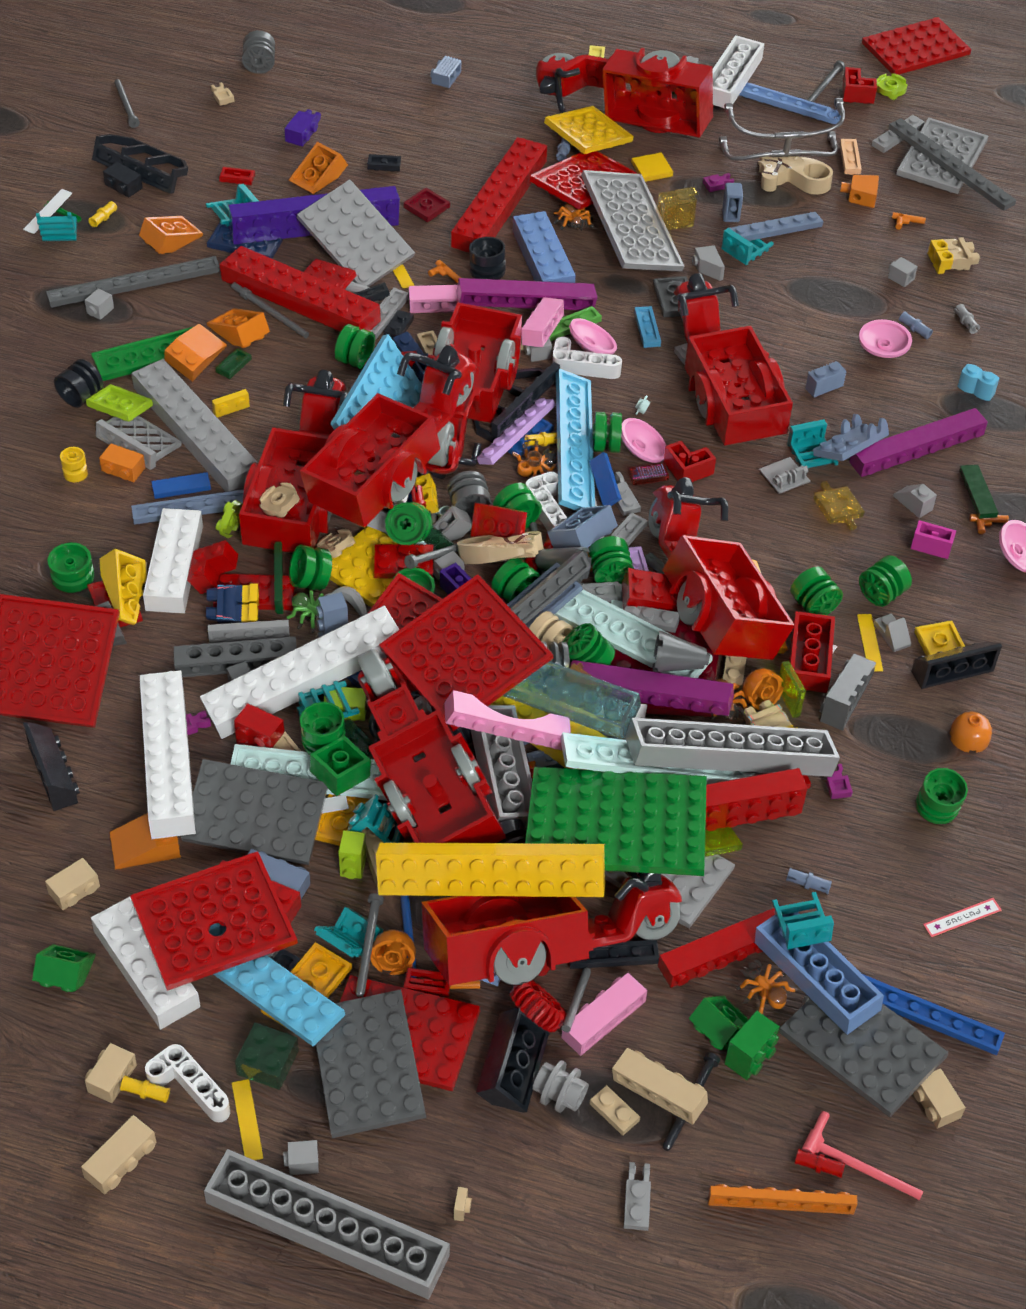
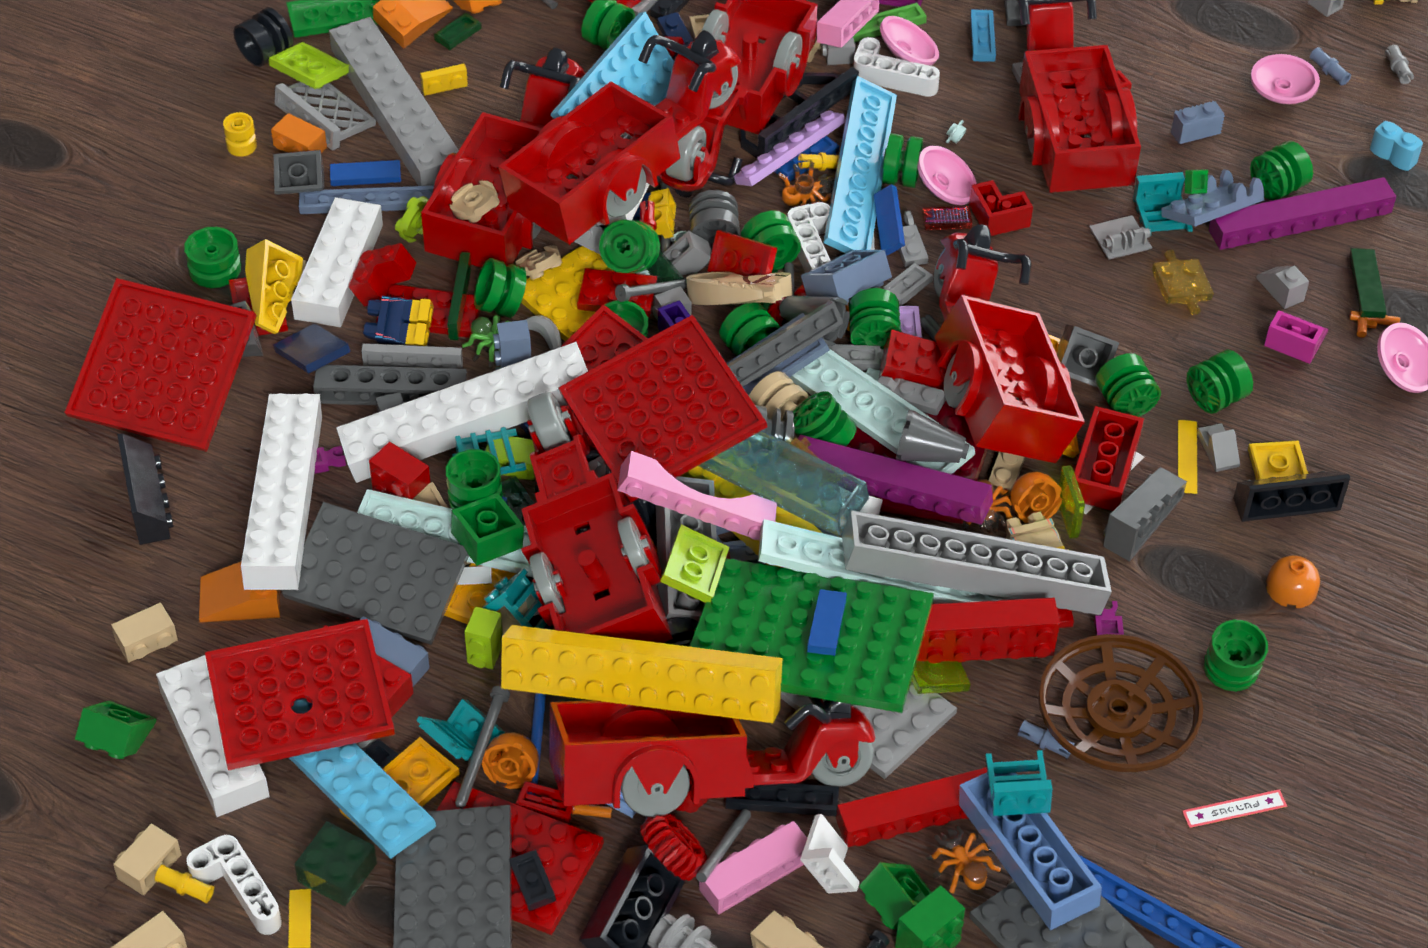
camera: 10 degrees right, 0 degrees up
(128, 491) = (298, 172): none -> dark grey slope
(166, 633) = (311, 348): none -> dark blue tile
(431, 1049) = (532, 880): none -> black plate
(514, 775) = (694, 564): none -> lime plate
(630, 810) = (827, 622): none -> blue tile
(658, 999) = (825, 857): none -> white bracket
(779, 569) = (1084, 353): none -> dark grey slope
(835, 425) = (1196, 181): none -> green plate
(862, 837) = (1124, 694): none -> reddish brown dish
(899, 409) = (1282, 169): none -> green wheel

